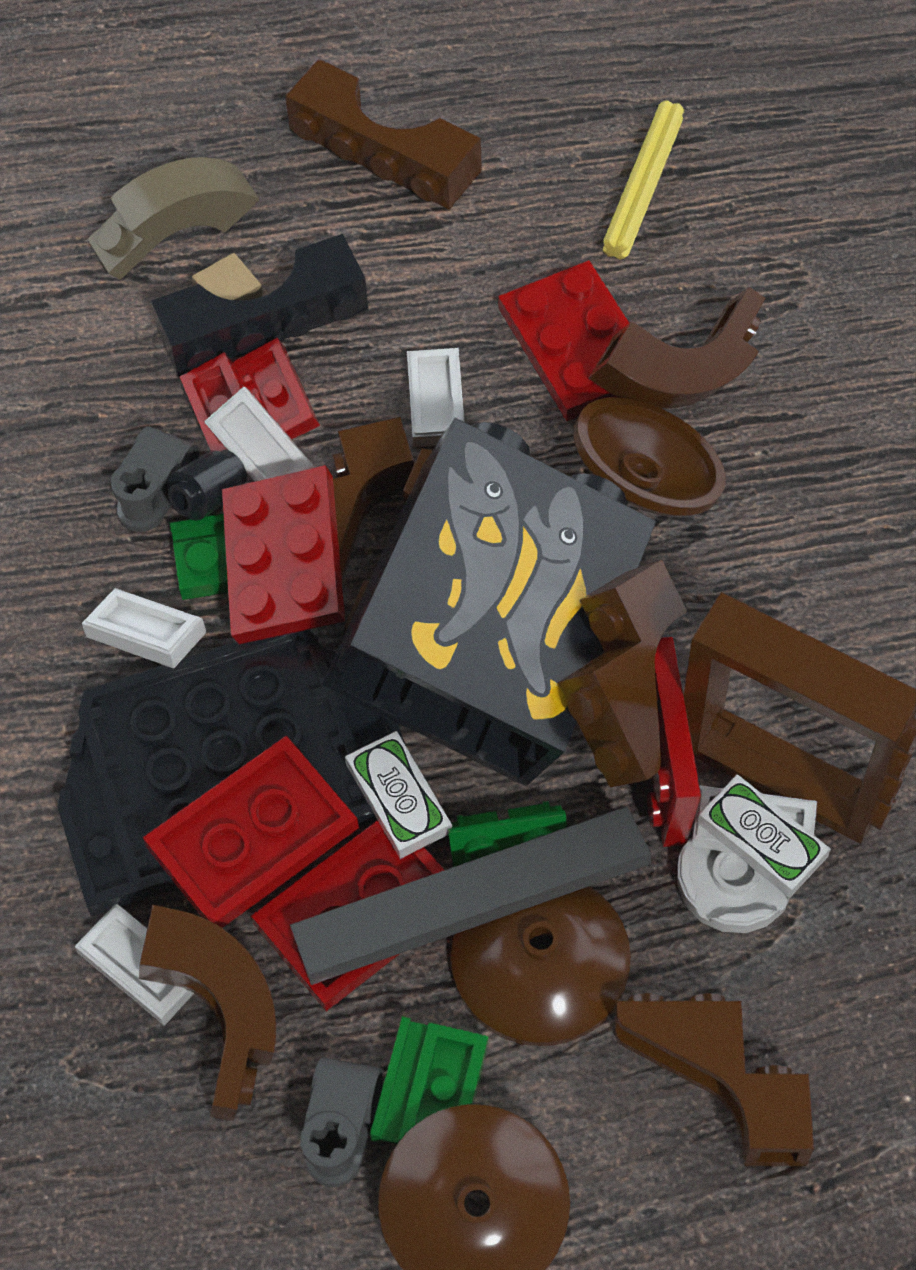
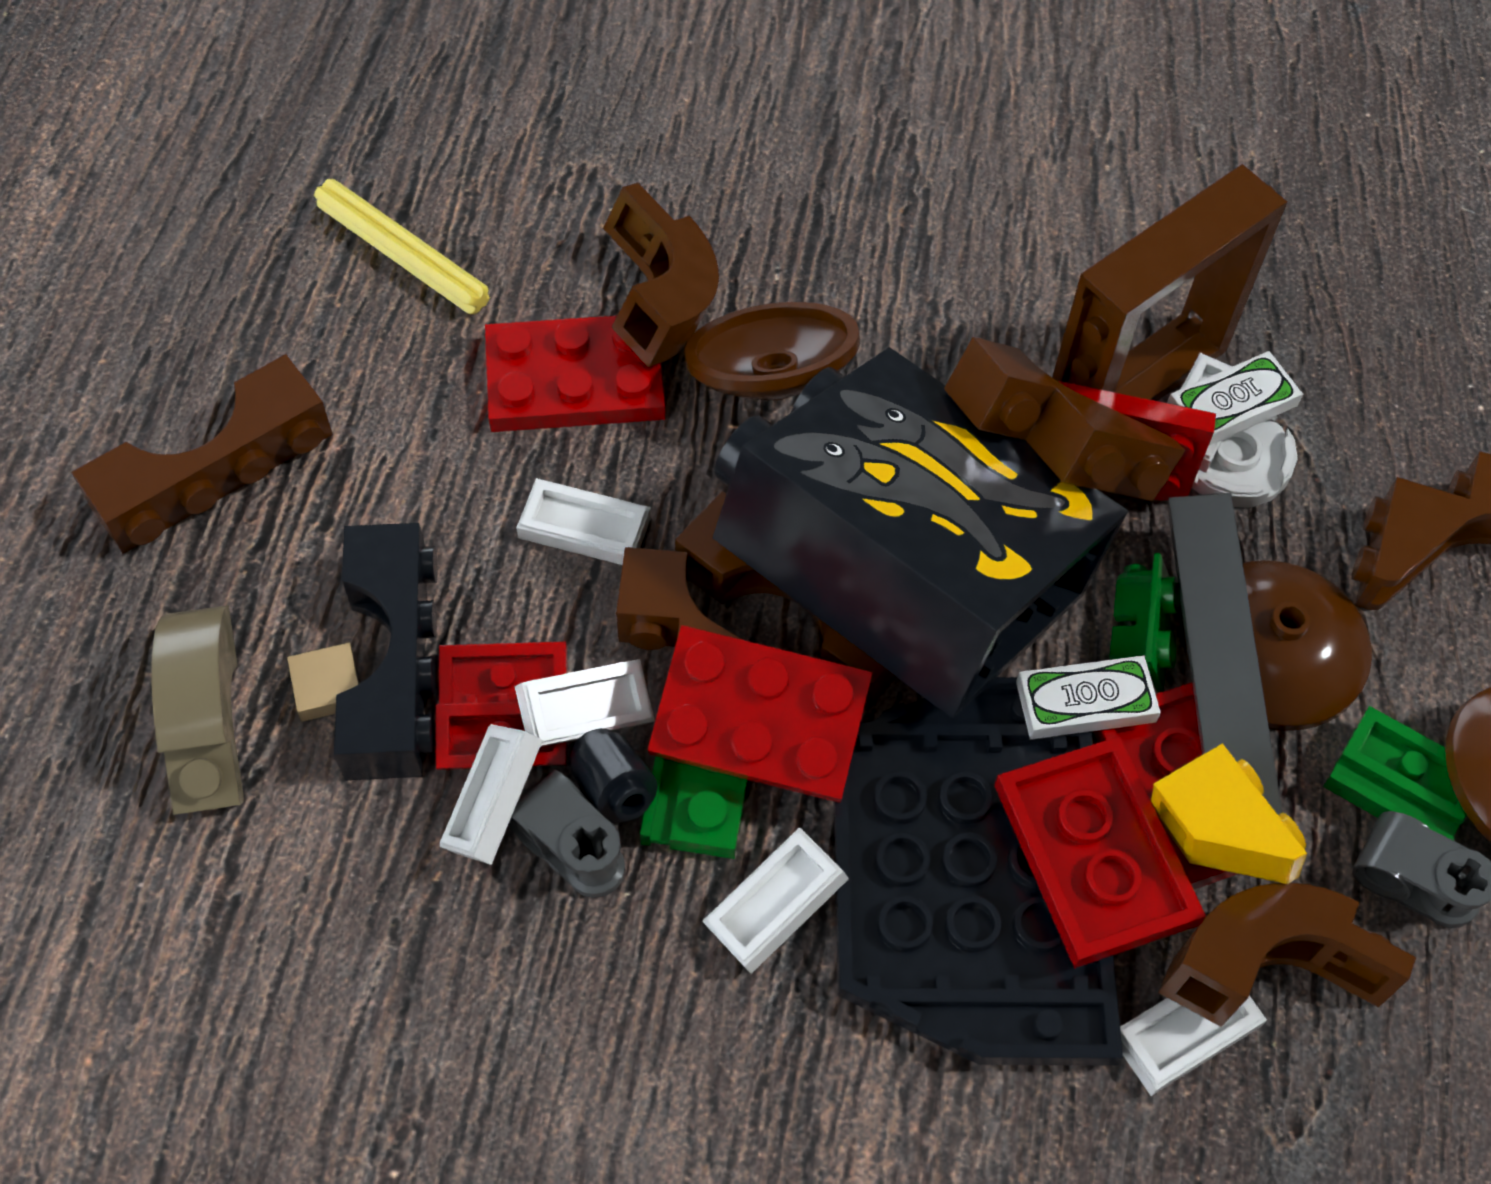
camera: 75 degrees left, 0 degrees up
(161, 410) = (490, 793): none -> white tile
(298, 907) = (1225, 822): none -> yellow slope

